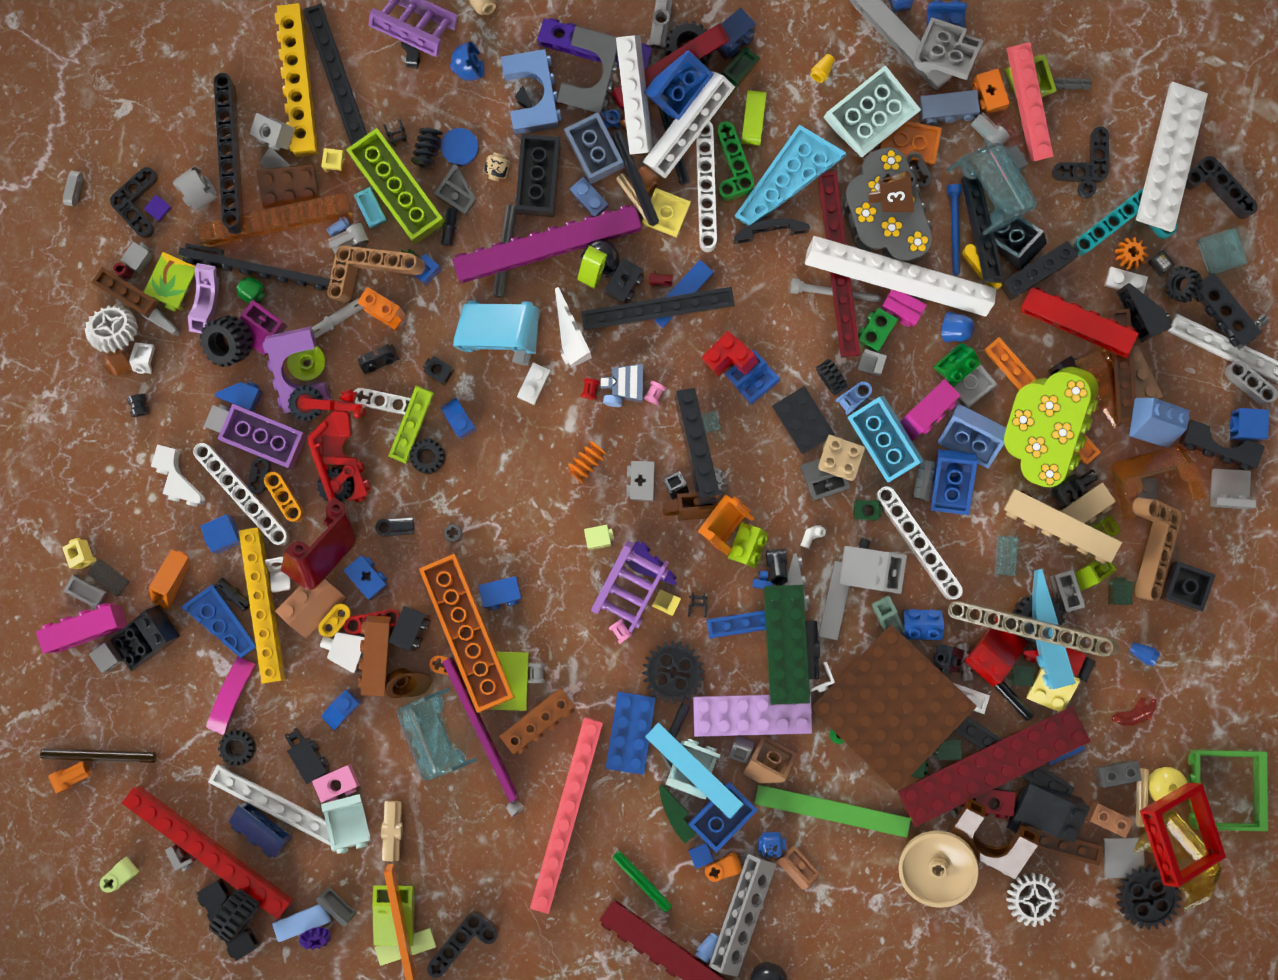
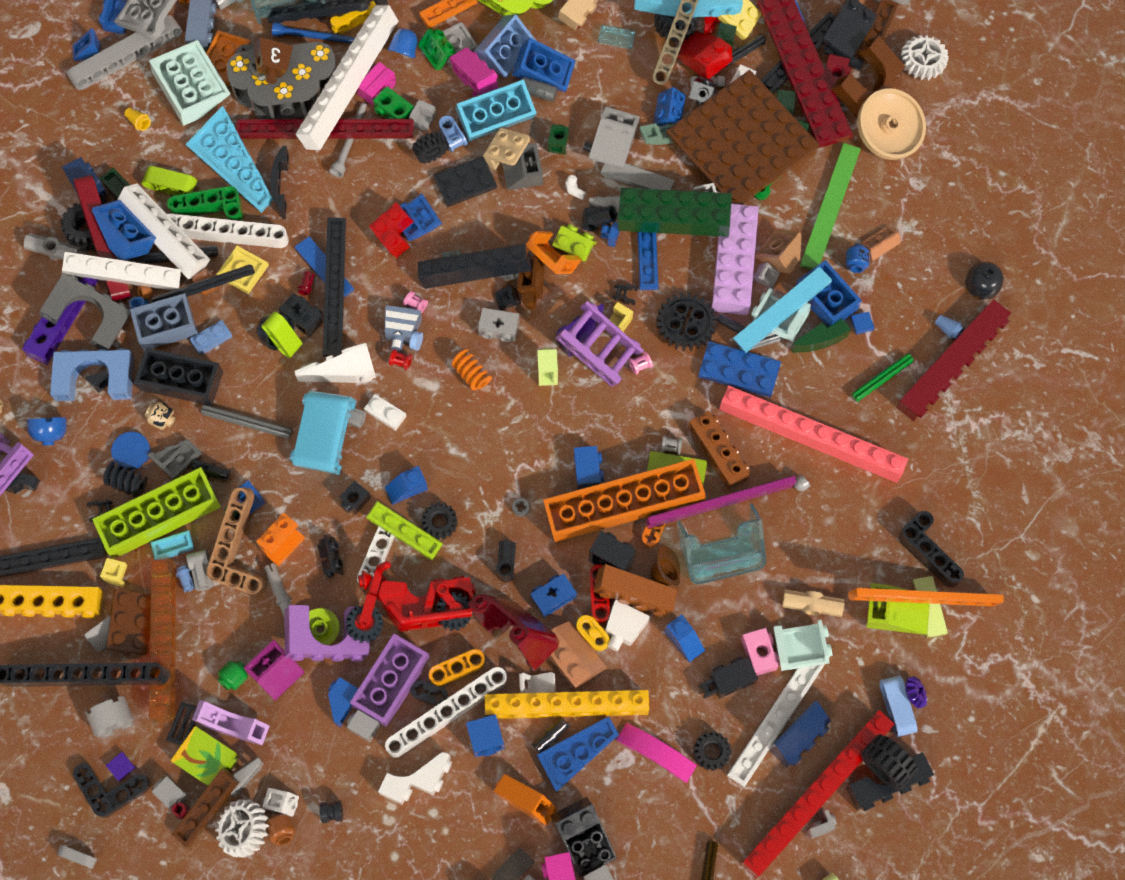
camera: 90 degrees left, 15 degrees down
(214, 343) = (292, 714): black tyre -> none
(247, 268) = (208, 673): black plate -> none
(271, 131) = (61, 637): light grey brick -> none
(336, 906) = (884, 668): dark grey tile -> none
(546, 244) = (250, 379): magenta brick -> none
(627, 186) = (219, 294): tan axle -> none
(728, 866) = (875, 303): orange piece -> none
(742, 915) = (921, 290): light grey brick -> none
(927, 548) = (589, 108): white beam -> none

